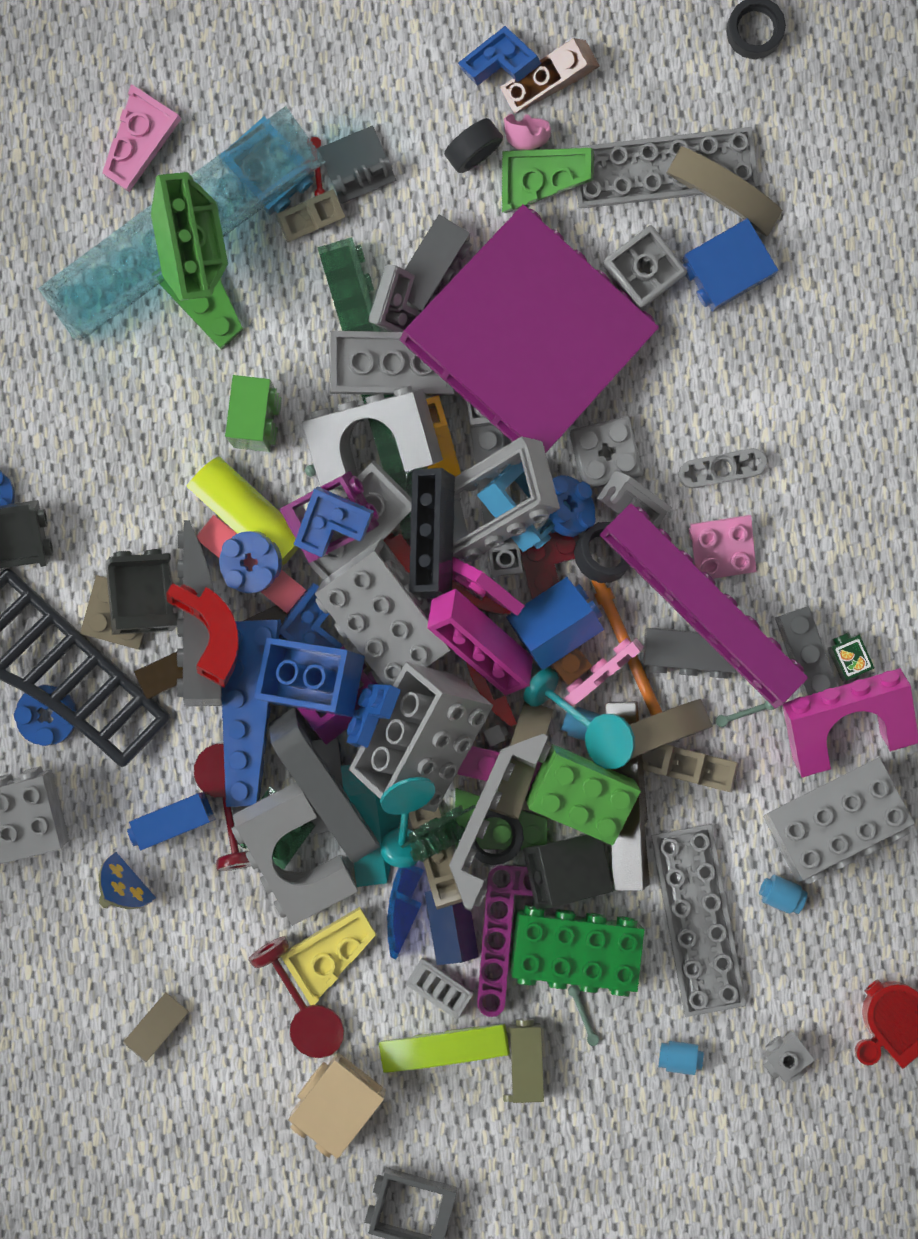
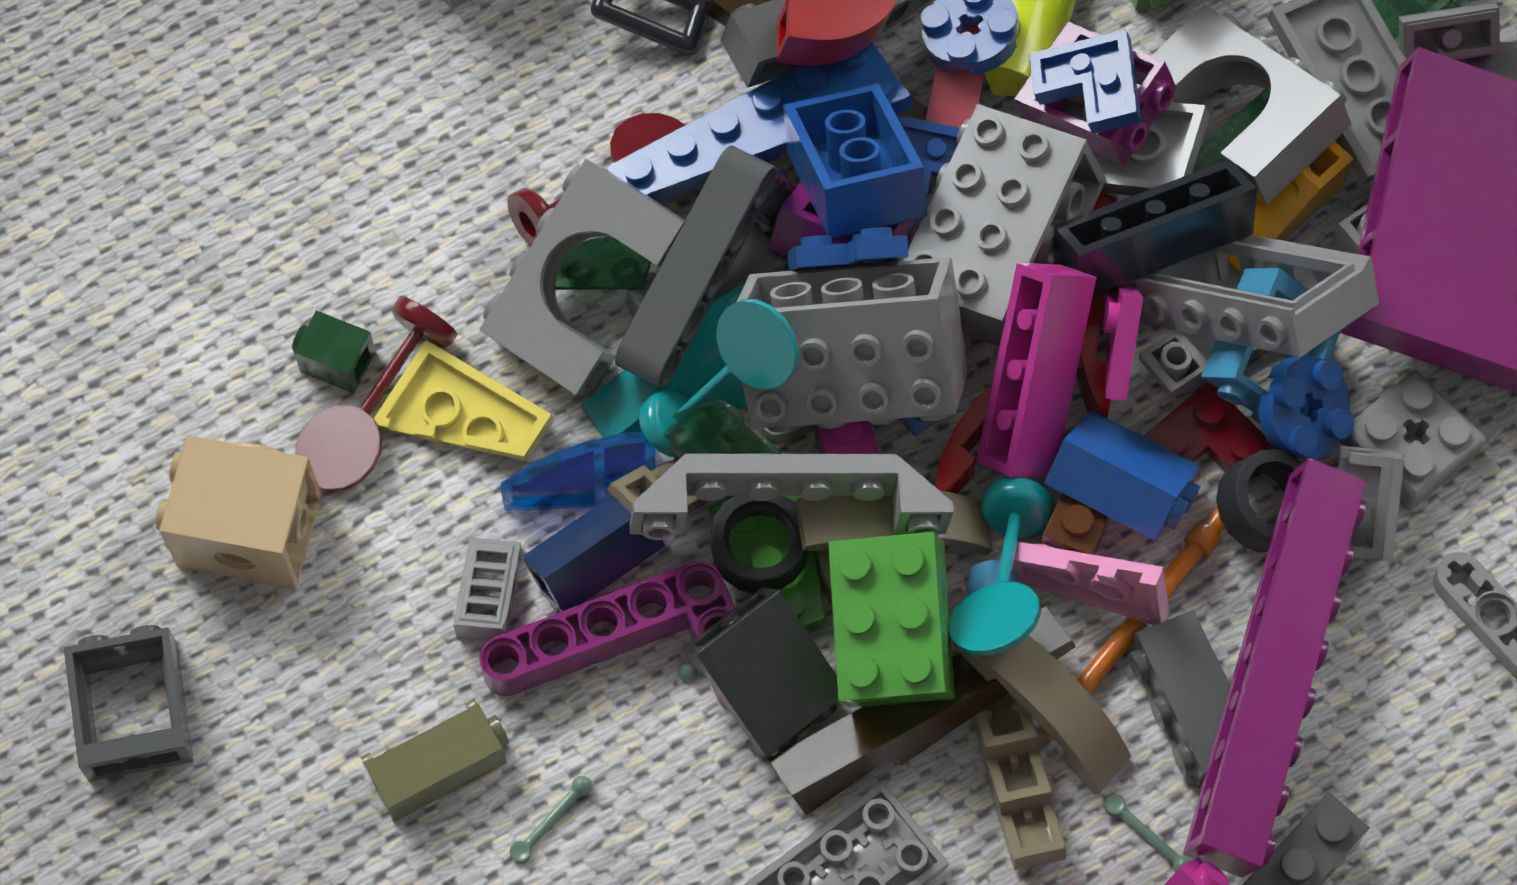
camera: 65 degrees right, 20 degrees down
(121, 886) = (422, 86): blue shield -> none
(155, 1027) = (239, 228): dark tan slope -> none
(170, 821) = (548, 103): blue brick -> none
(259, 1009) = (333, 351): none -> dark green brick
(444, 1048) = (401, 633): lime slope -> none
(577, 951) = (649, 737): green brick -> none
(724, 546) = (1380, 672): bright pink hinge -> none

